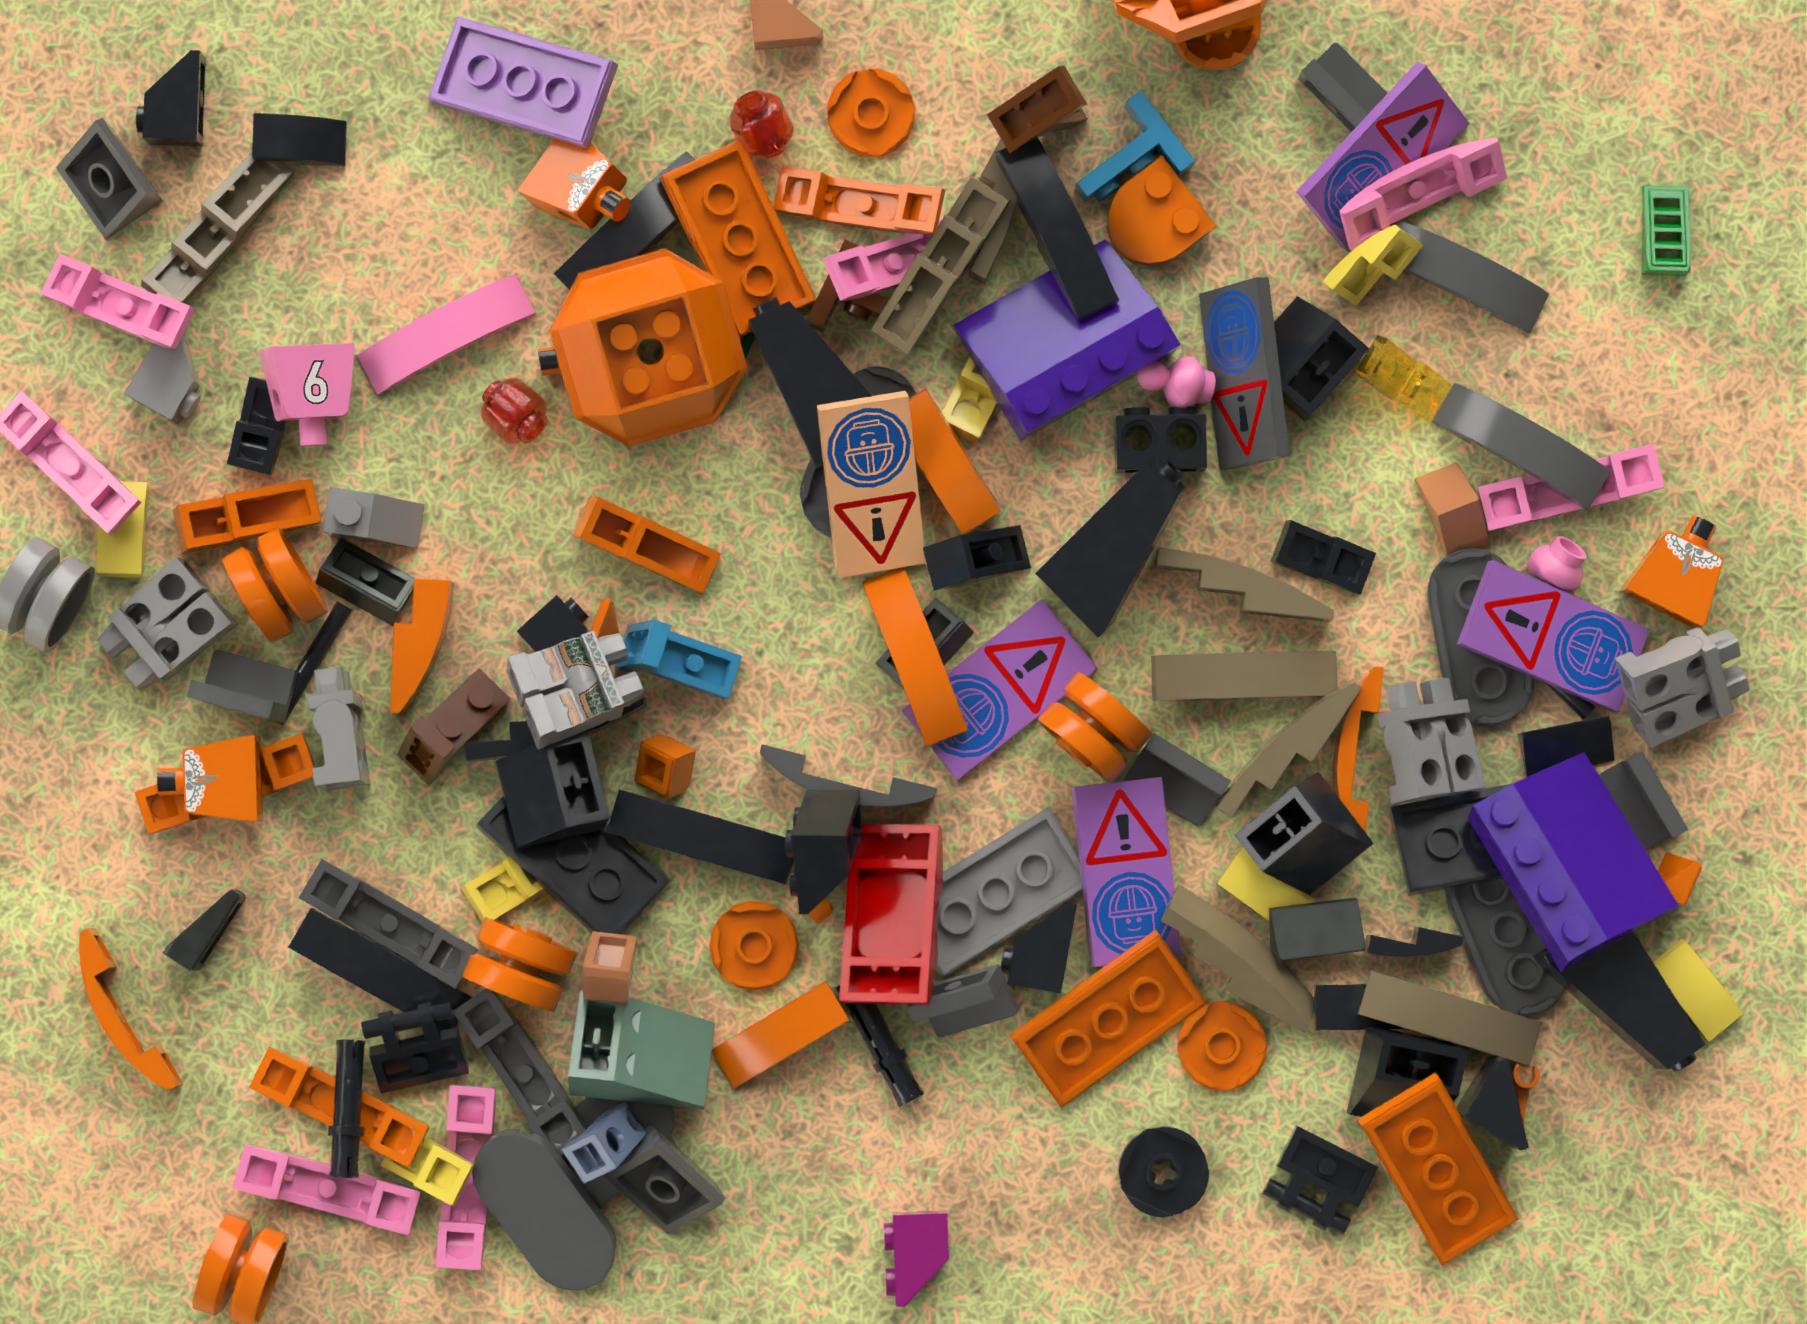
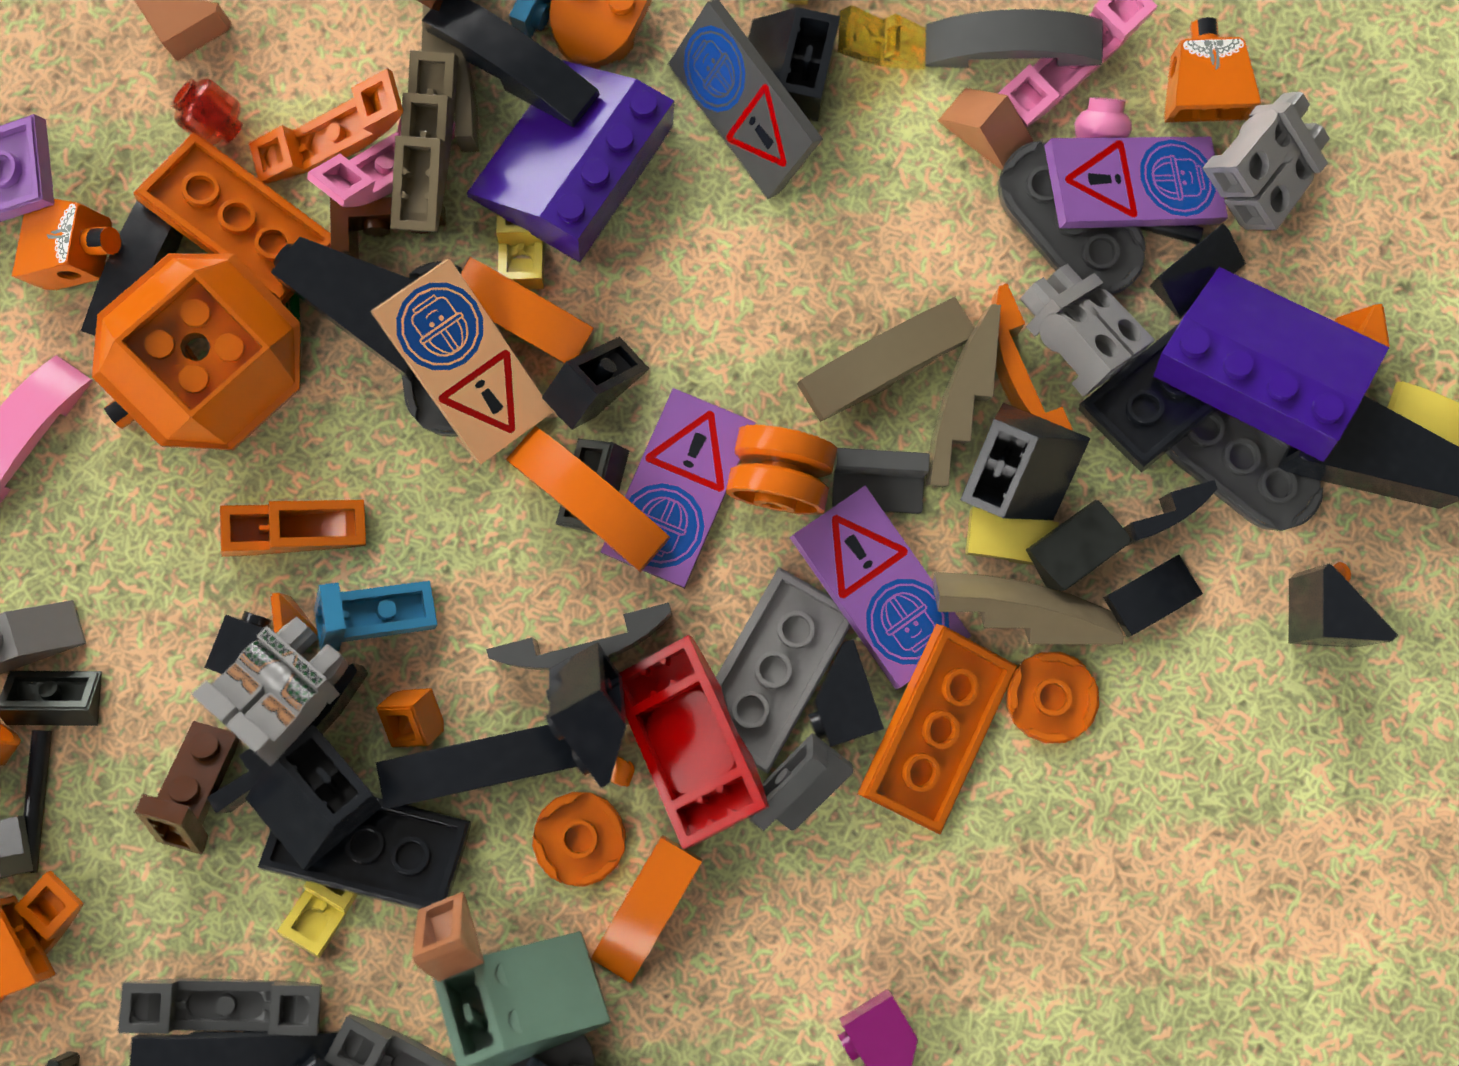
camera: 25 degrees left, 5 degrees down
(340, 731) = (81, 853): light grey hips -> none
(419, 643) = (123, 728): orange slope -> none
(514, 411) = (109, 472): clear red head -> none
(521, 960) = (363, 987): orange wheel -> none
(871, 128) = (309, 73): orange tile -> none
(885, 1051) = (753, 872): black pin -> none
(1111, 549) = (709, 305): black slope -> none
(1159, 430) = (710, 208): black brick -> none
(1173, 1195) = (1086, 859): black plate -> none
(1182, 383) = (694, 141): bright pink animal -> none
(1259, 591) = (858, 278): dark tan slope -> none
(1323, 557) = (898, 225): black slope -> none
(1327, 1167) = (1210, 756): black plate -> none
(1399, 1060) = (1237, 634): black slope -> none
(1438, 1169) = (1314, 701): orange tile -> none
(1449, 1017) = (1238, 560): dark tan slope -> none
(1643, 801) = (1296, 276): dark grey panel -> none

